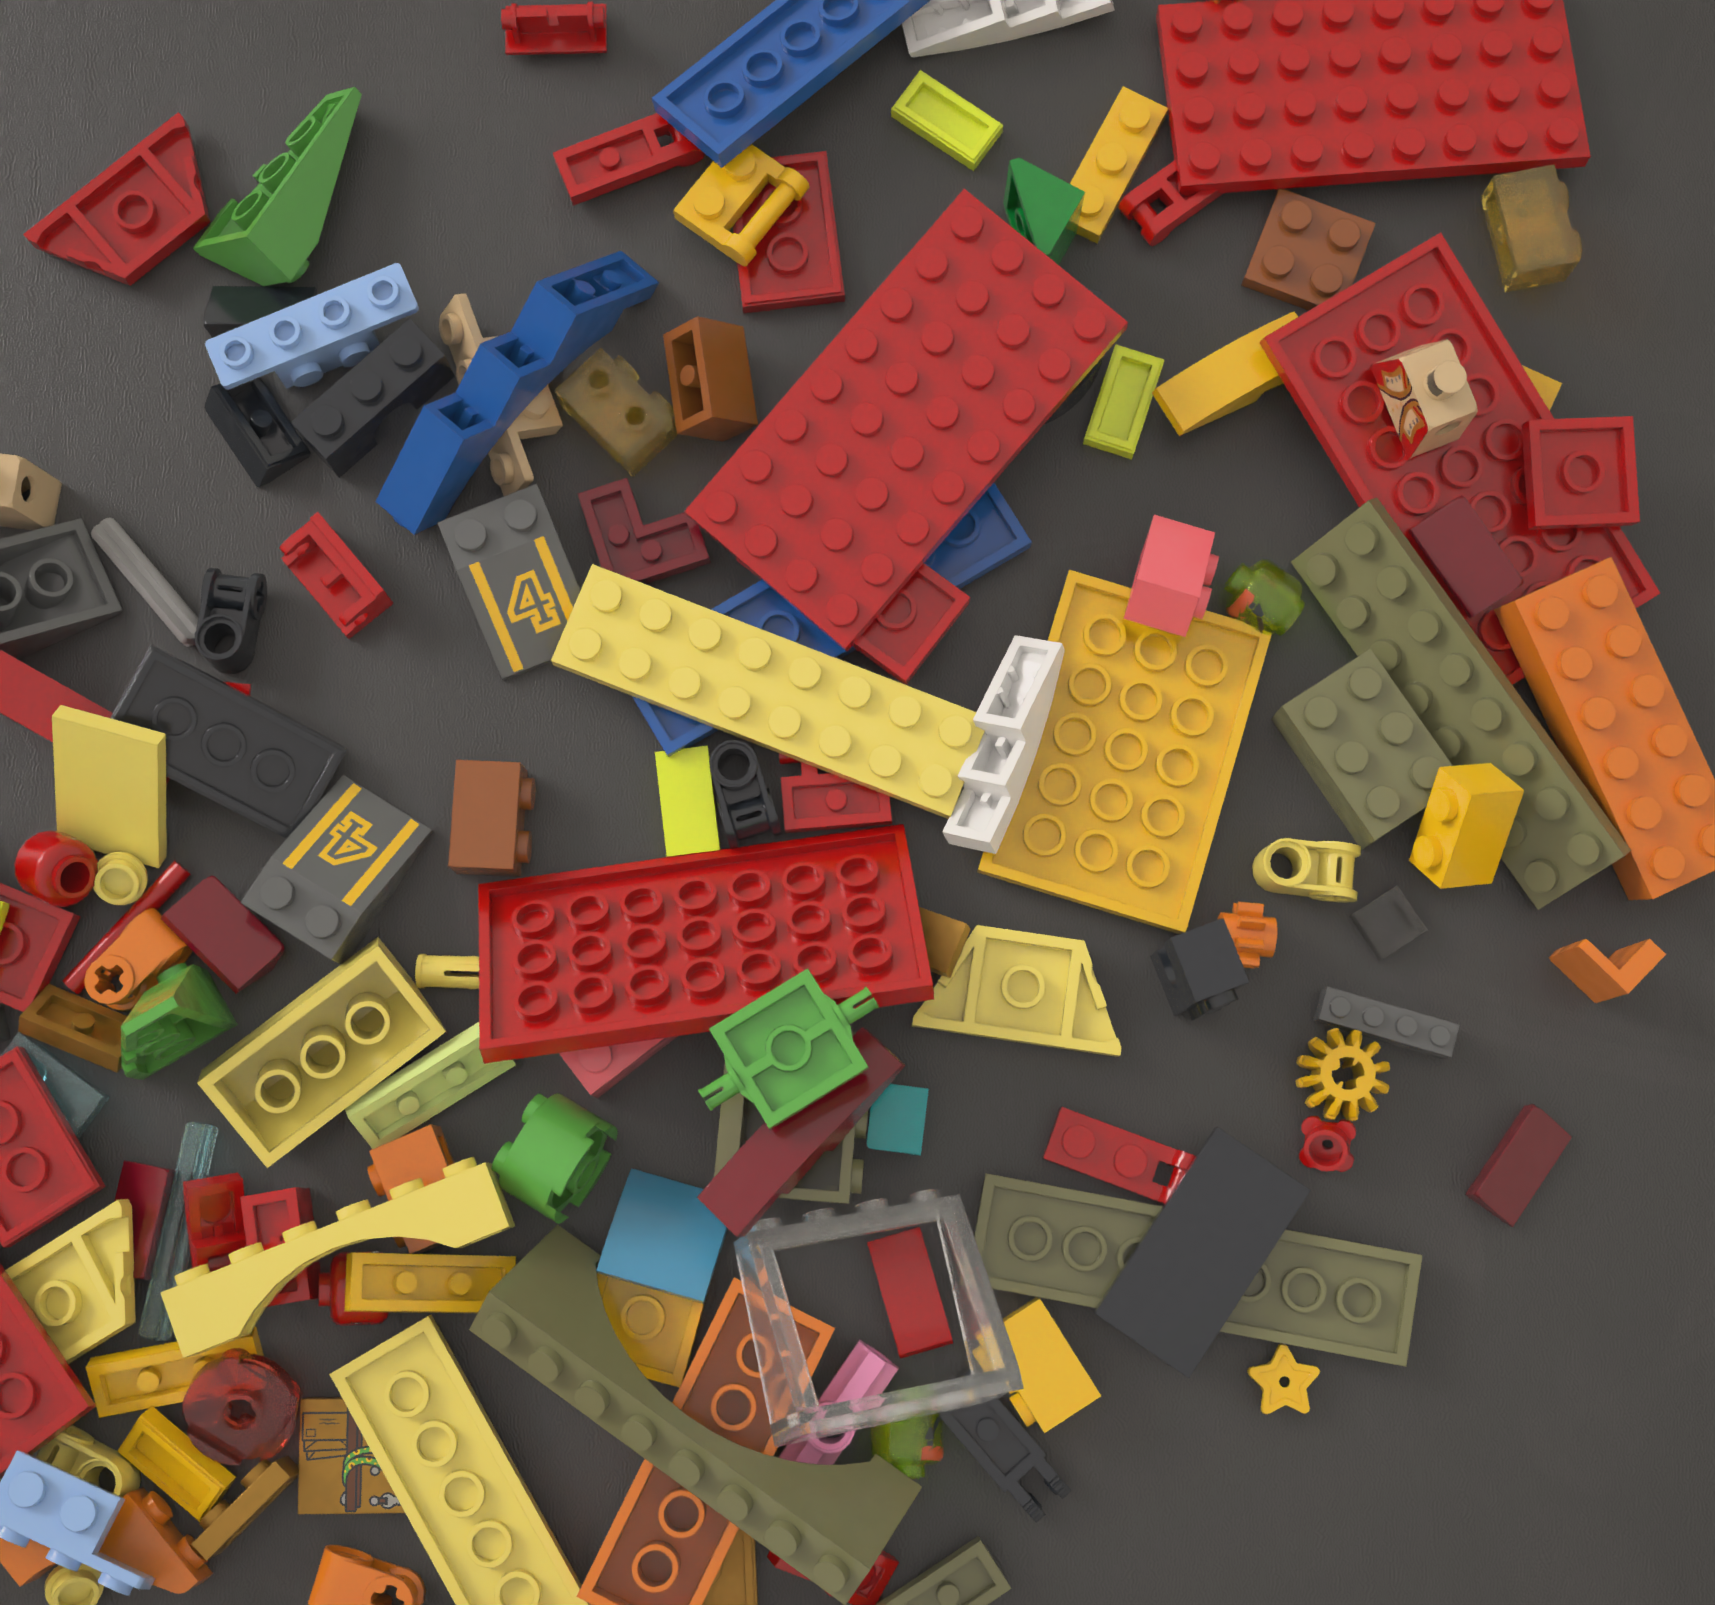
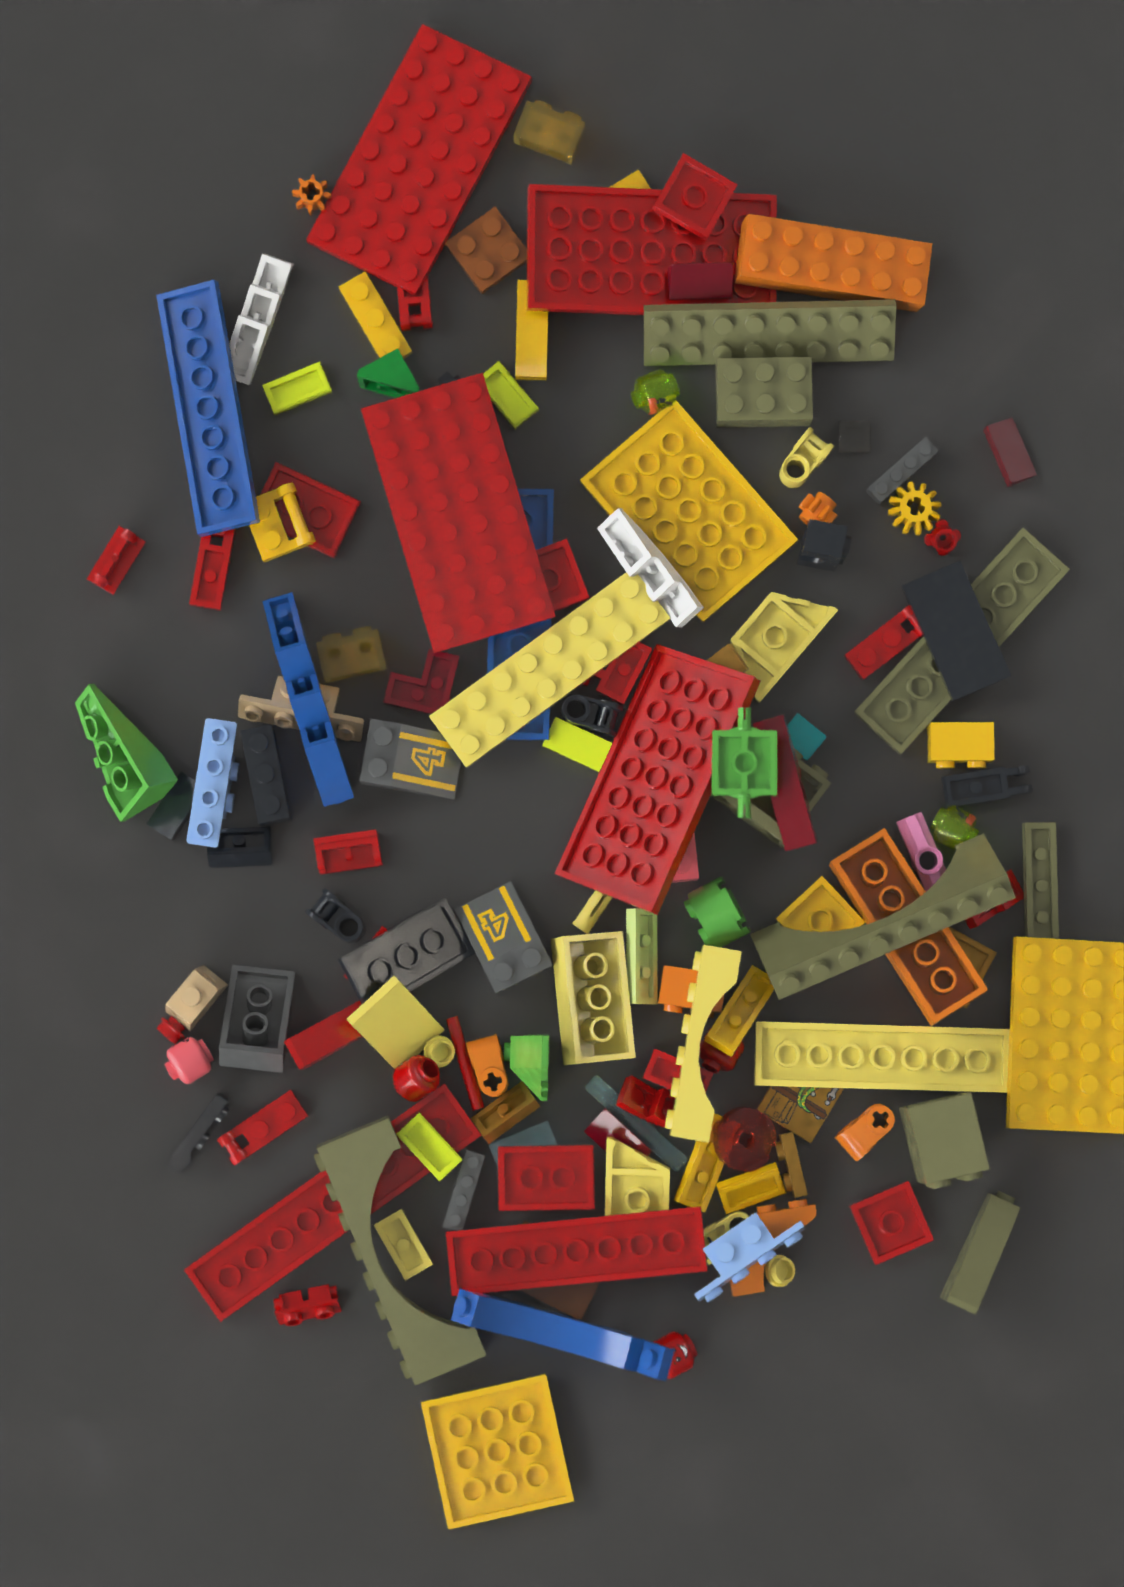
camera: 60 degrees left, 5 degrees up
(131, 210) = (79, 841): red wing -> none
(146, 580) = (289, 949): light grey axle -> none
(224, 934) = (501, 1014): dark red slope -> none
(490, 818) = (525, 847): dark orange brick -> none
(663, 1238) = (788, 885): dark azure slope -> none
(710, 379) = (366, 597): dark orange brick -> none
(779, 1353) = (884, 858): clear windscreen -> none
(910, 1292) = (888, 784): red slope -> none
(1172, 576) = (617, 431): coral brick -> none
(1268, 1377) = (1034, 638): yellow plate -> none
(1426, 393) = (609, 249): tan torso -> none
(1466, 825) = (833, 370): yellow brick -> none
(1606, 977) = (949, 345): orange panel -> none

